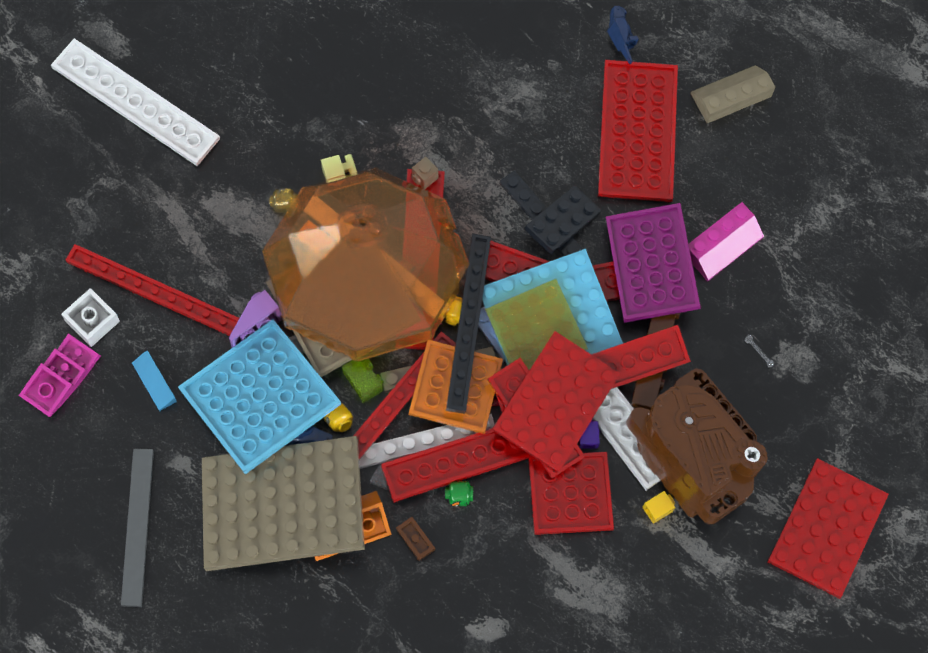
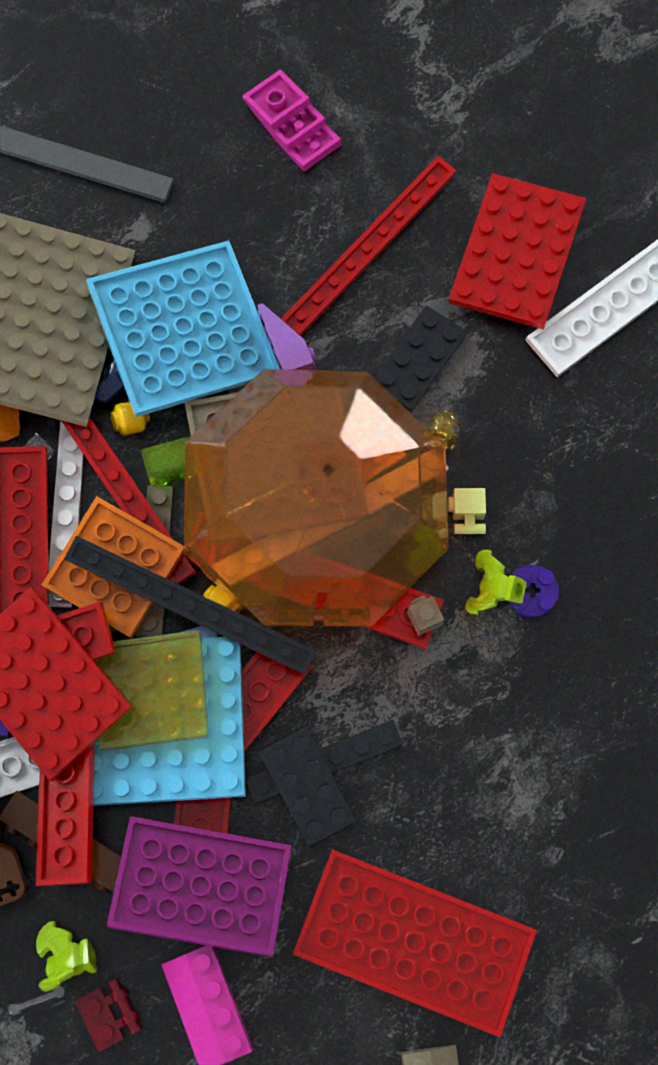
camera: 110 degrees right, 5 degrees up
(90, 317) = (351, 164): white brick -> none
(128, 186) = (517, 251): none -> red plate
(153, 381) = (251, 222): dark azure slope -> none
(231, 233) = (420, 357): none -> black plate
(382, 107) = (548, 591): none -> dark purple plate
(388, 138) = (494, 585): none -> lime animal
(621, 32) = (577, 970): dark blue animal -> none
(728, 337) = (68, 957): none -> lime animal
(755, 307) = (100, 1018): none -> dark red plate

